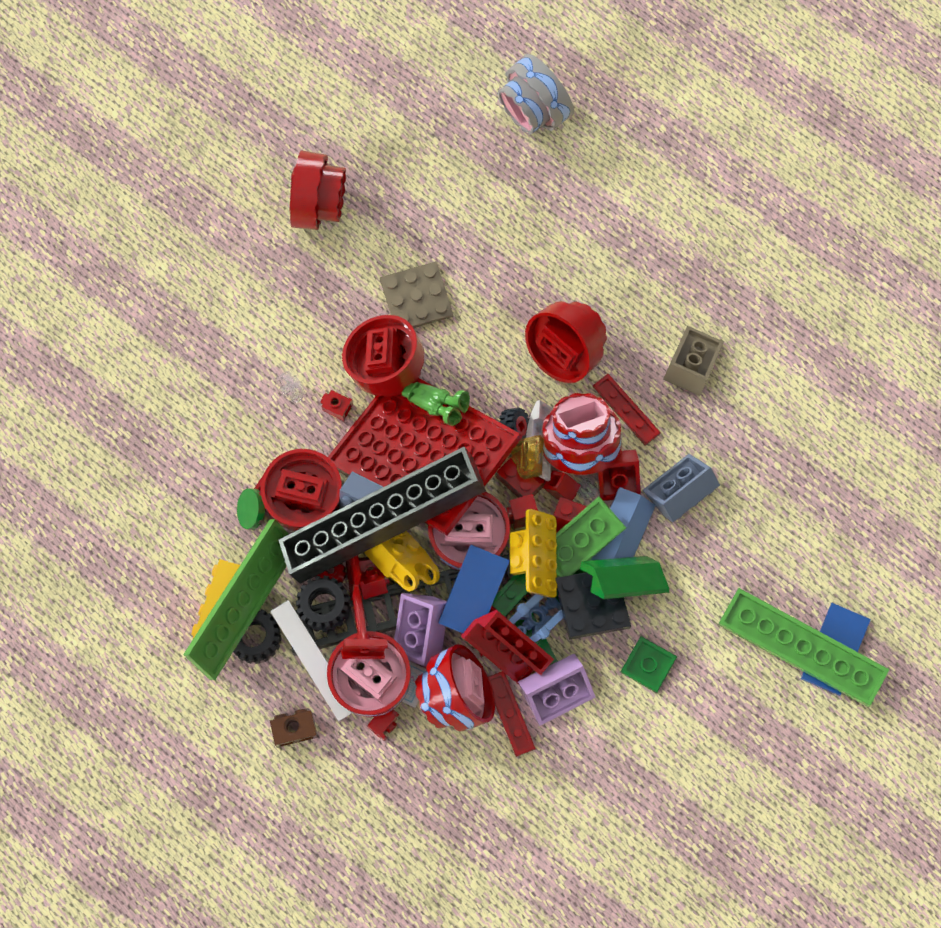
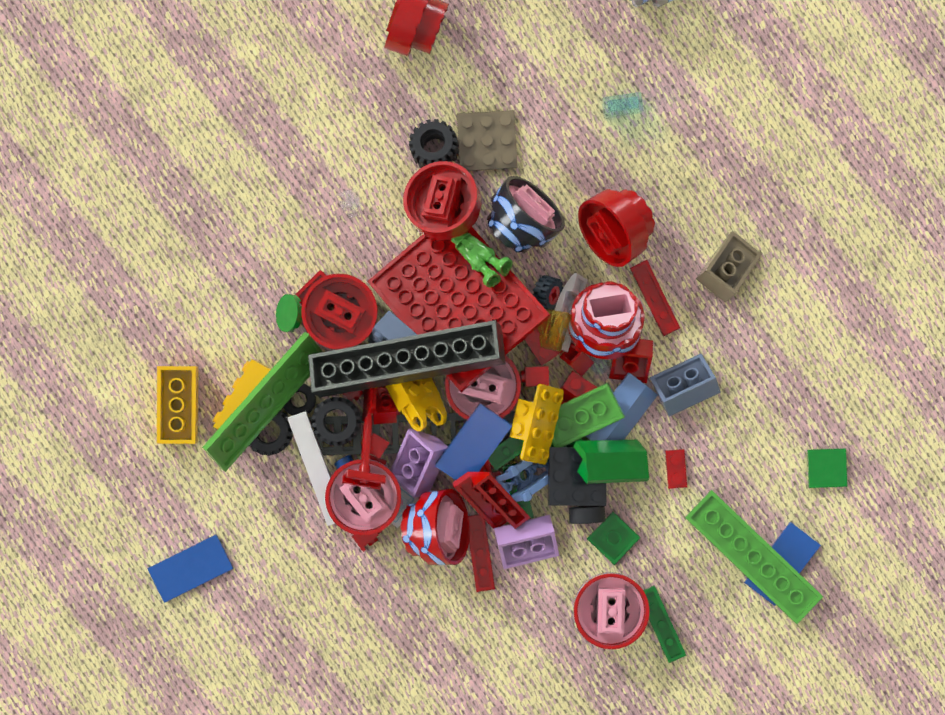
camera: 10 degrees right, 15 degrees up
(151, 630) = (177, 404): none -> yellow brick
(199, 805) = (190, 568): none -> blue tile
(283, 585) = (308, 406): none -> black tyre
(305, 732) = (276, 527): reddish brown brick -> none
(341, 409) = (394, 235): red brick -> none
(359, 298) = (432, 131): none -> black tyre
(373, 620) = (378, 445): none -> red tile
(469, 353) = (524, 215): none -> piece
(543, 230) = (622, 105): none -> clear light blue brick
(613, 642) = (586, 514): none -> black tyre
(646, 738) = (593, 611): none -> bright pink piece
(695, 576) = (676, 468): none -> red plate
(724, 743) = (663, 626): none -> green plate
(853, 538) = (827, 468): none -> green tile

